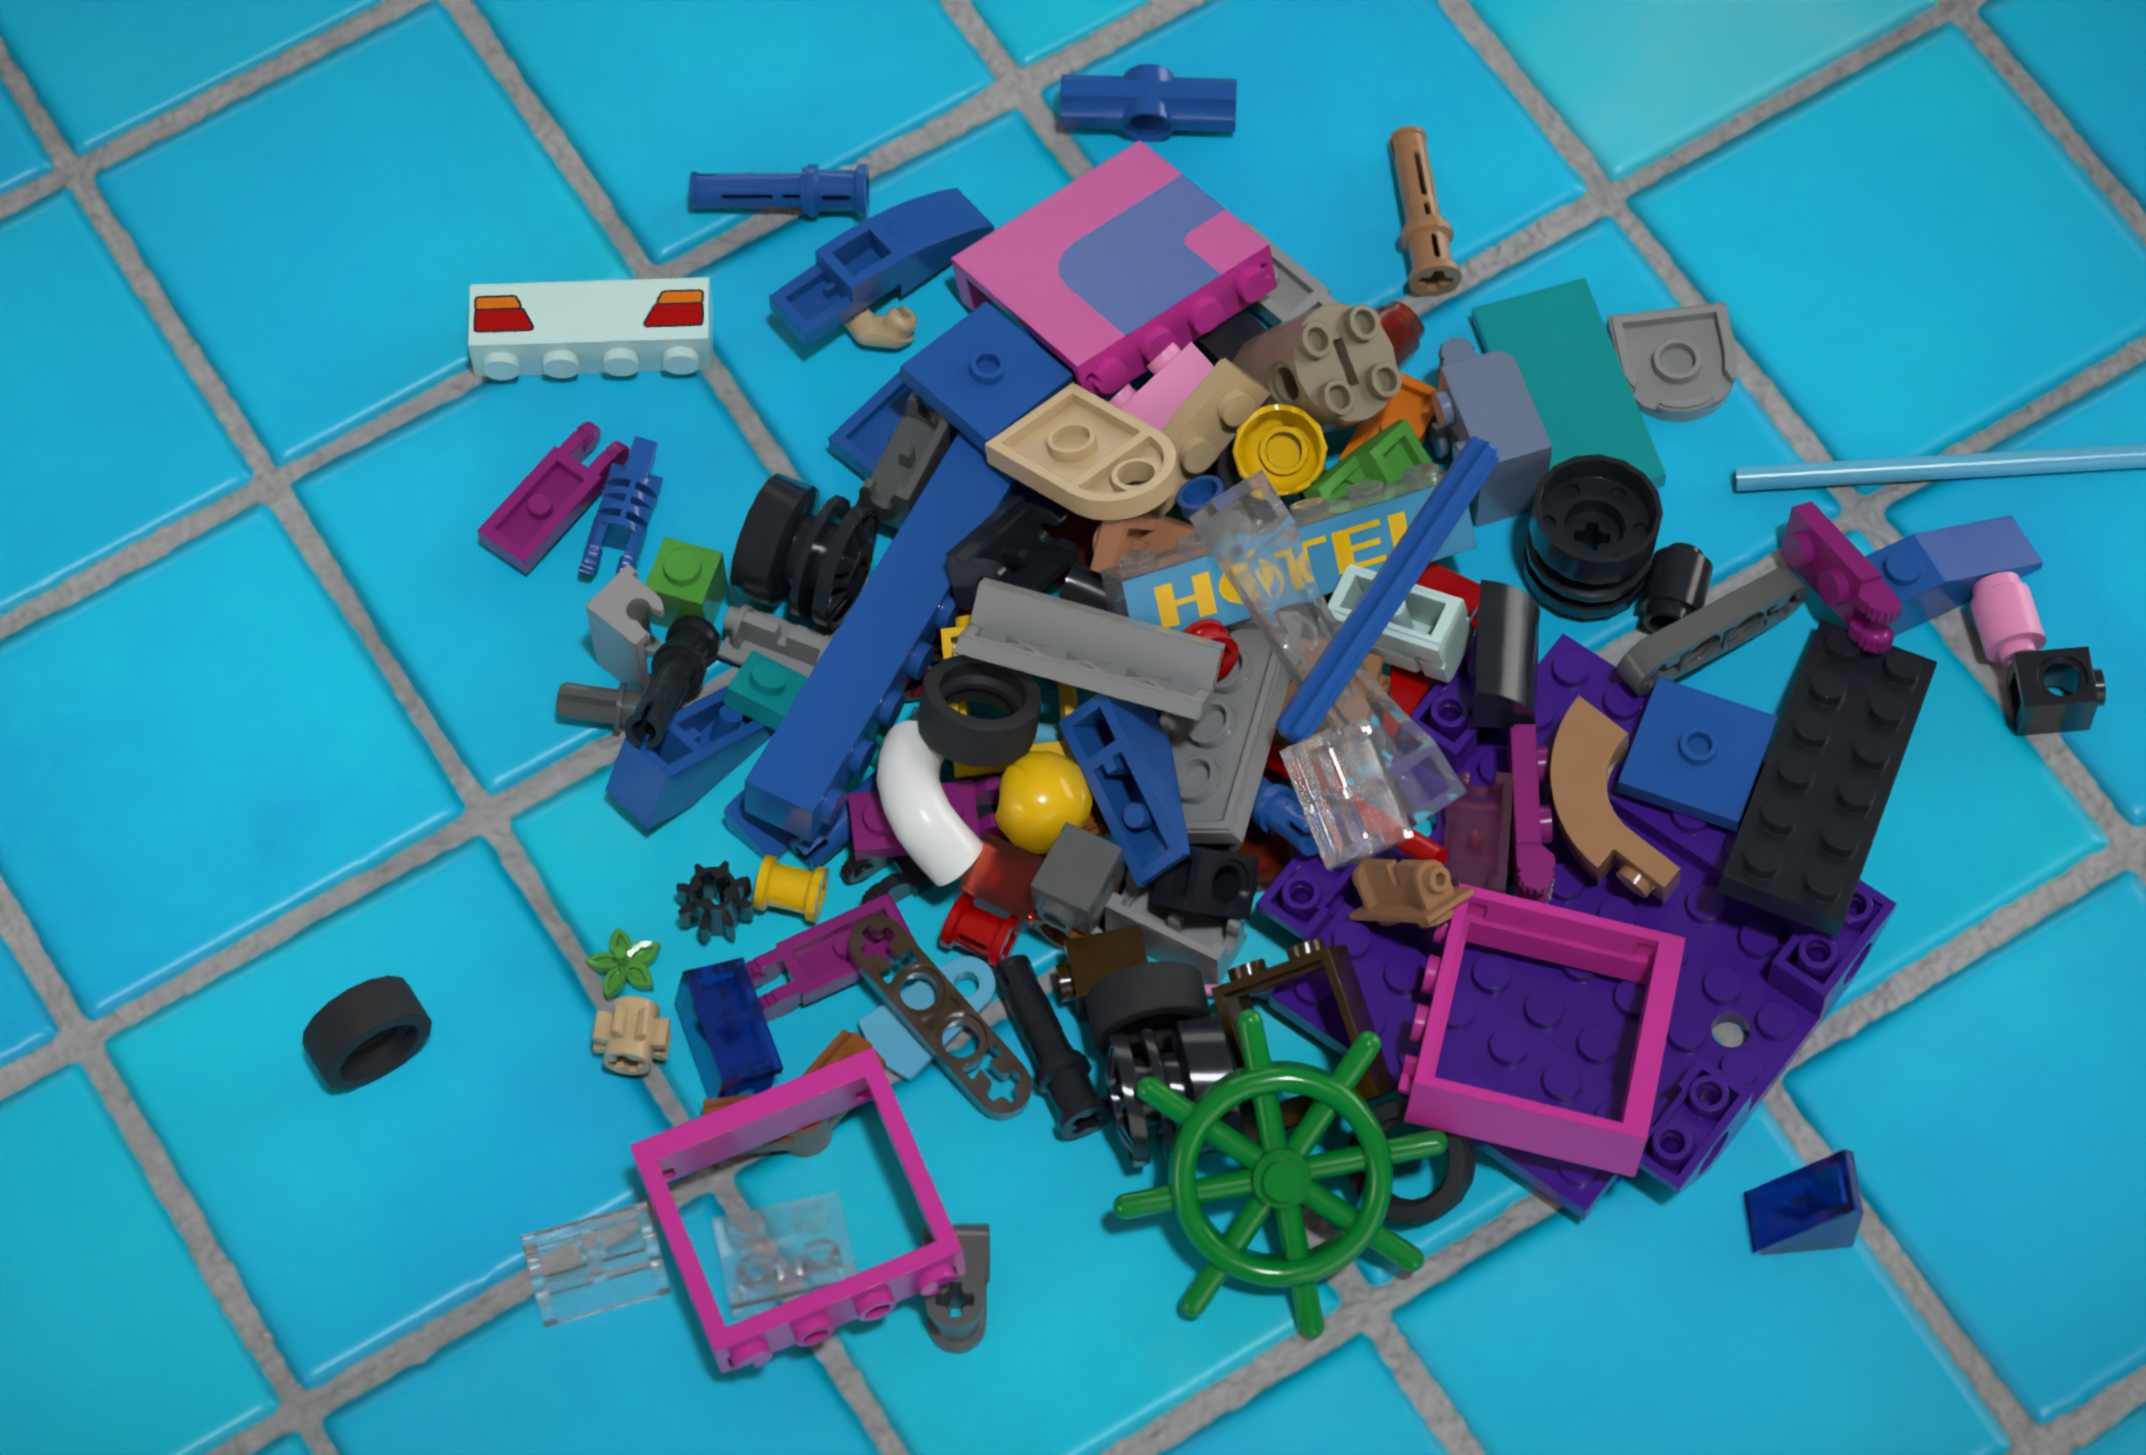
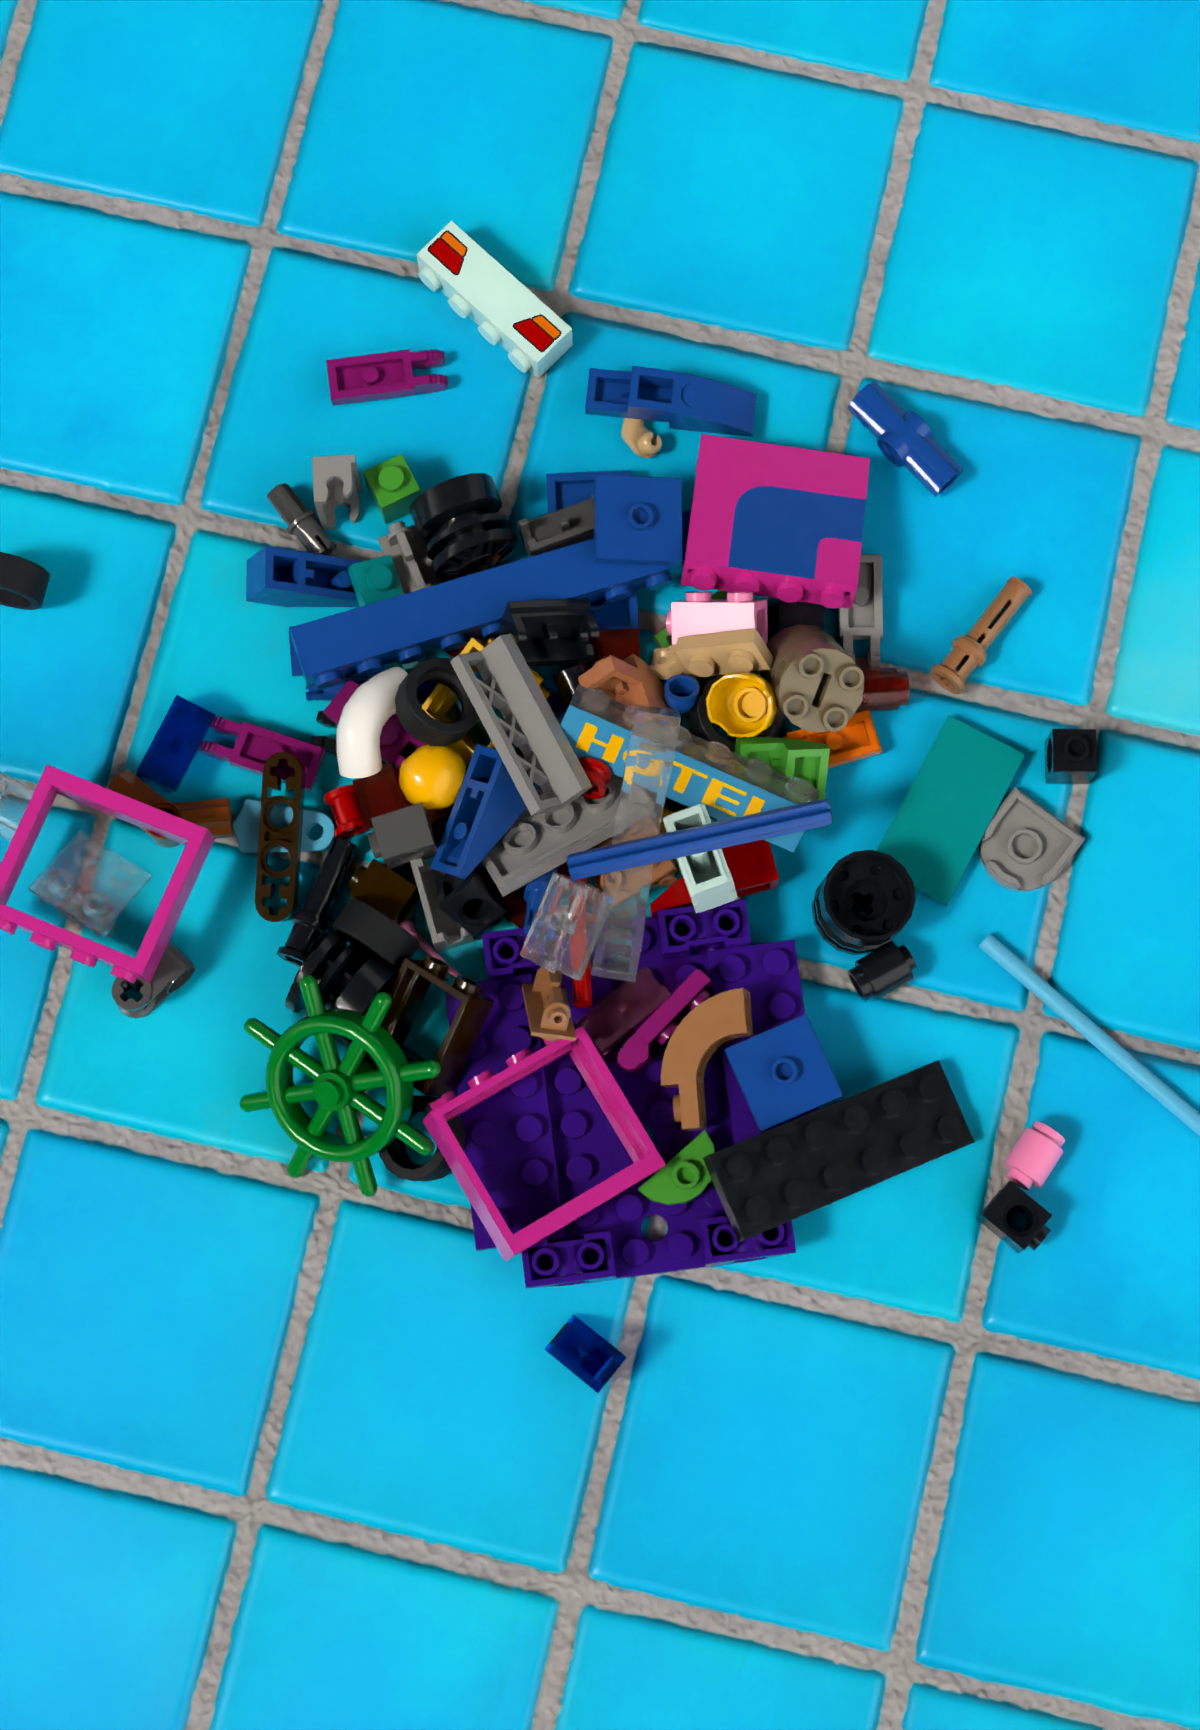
camera: 45 degrees right, 15 degrees up
(624, 509) = (409, 418): blue hinge -> none
(625, 963) = (171, 659): bright green plant -> none
(631, 1035) = (129, 701): tan gear -> none
(677, 670) = (339, 530): black pin -> none
(729, 893) = (233, 660): black gear -> none
(791, 888) = (283, 699): yellow bush -> none
(810, 190) = (680, 323): blue pin -> none
(1085, 456) = (636, 610): tan plate -> none
(1491, 401) = (874, 791): sand blue hinge -> none
(1505, 657) = (732, 930): black brick -> none
(1630, 238) = (1071, 756): none -> black brick
(1711, 944) = (683, 1176): none -> bright green plate
(1712, 630) = (869, 1013): dark grey beam -> none
(1841, 577) = (967, 1051): magenta hinge -> none
(1940, 566) = (1034, 1097): blue slope -> none

